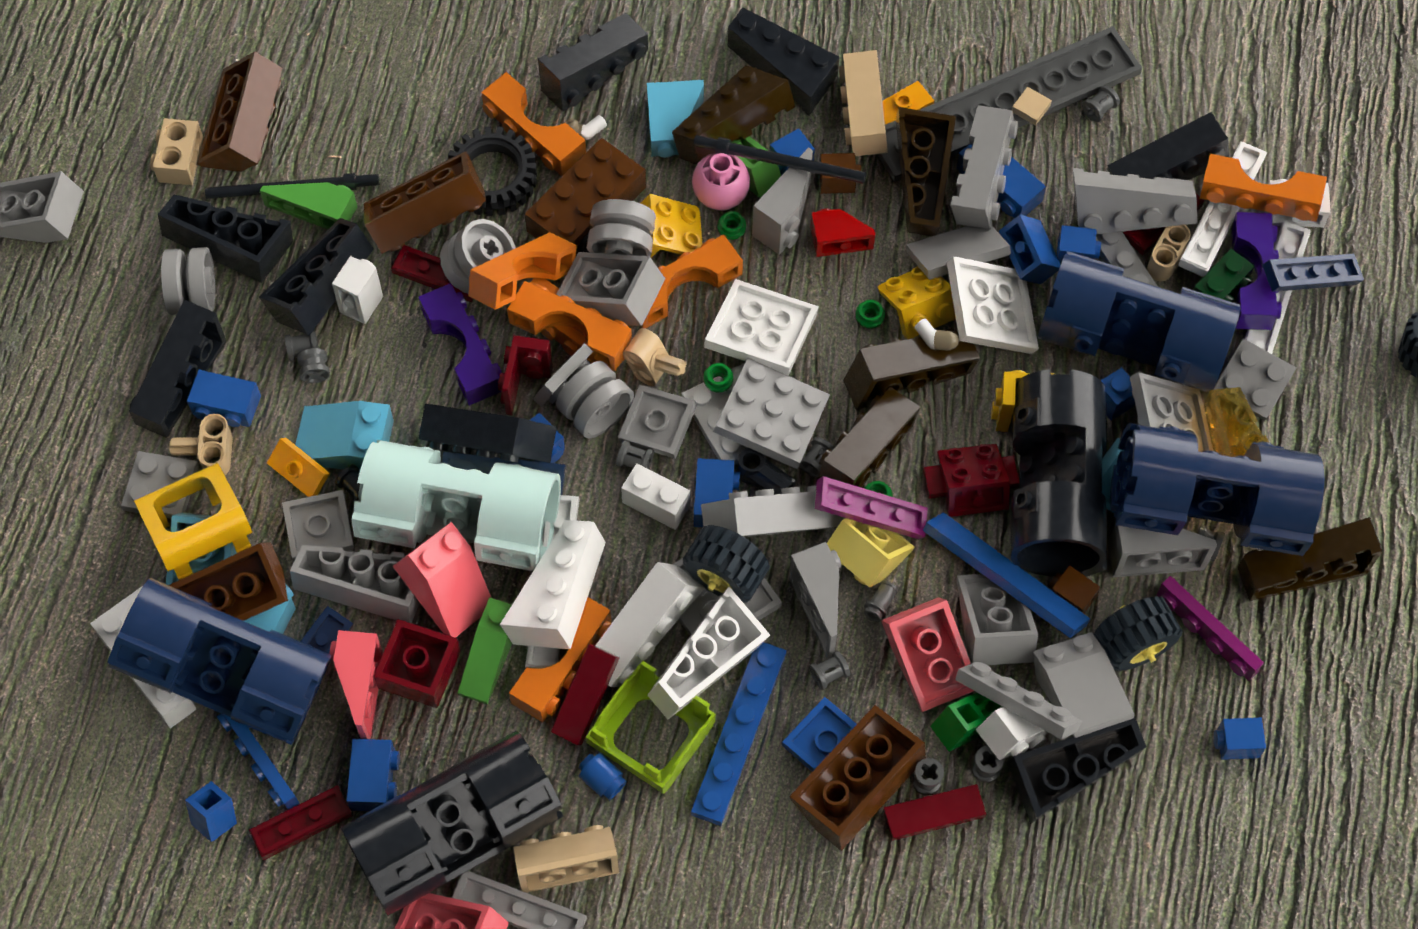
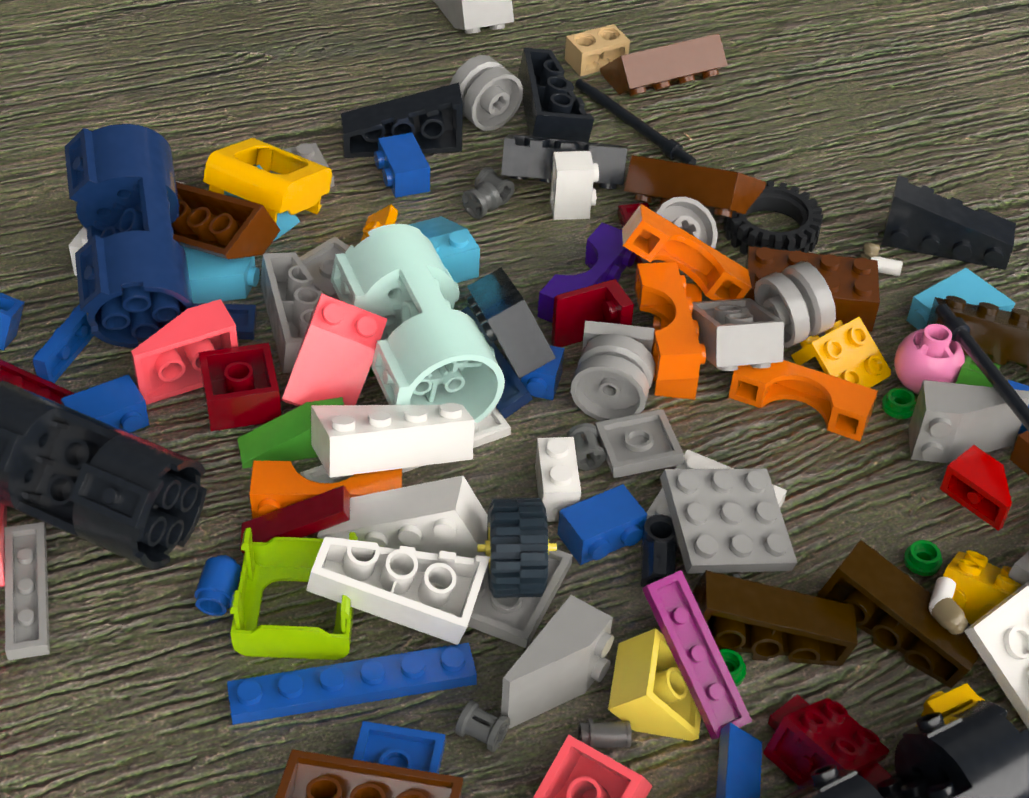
camera: 55 degrees right, 20 degrees down
(207, 445) = (354, 177): tan beam -> none
(312, 202) = (630, 130): bright green slope -> none
(556, 145) = (844, 203): orange arch -> none
(566, 858) = (100, 595): tan slope -> none
(650, 359) = (695, 397): tan beam -> none
(718, 370) = (725, 456): green plate -> none
(761, 326) = (815, 471): white plate -> none
(769, 512) = (606, 556): light grey wedge -> none

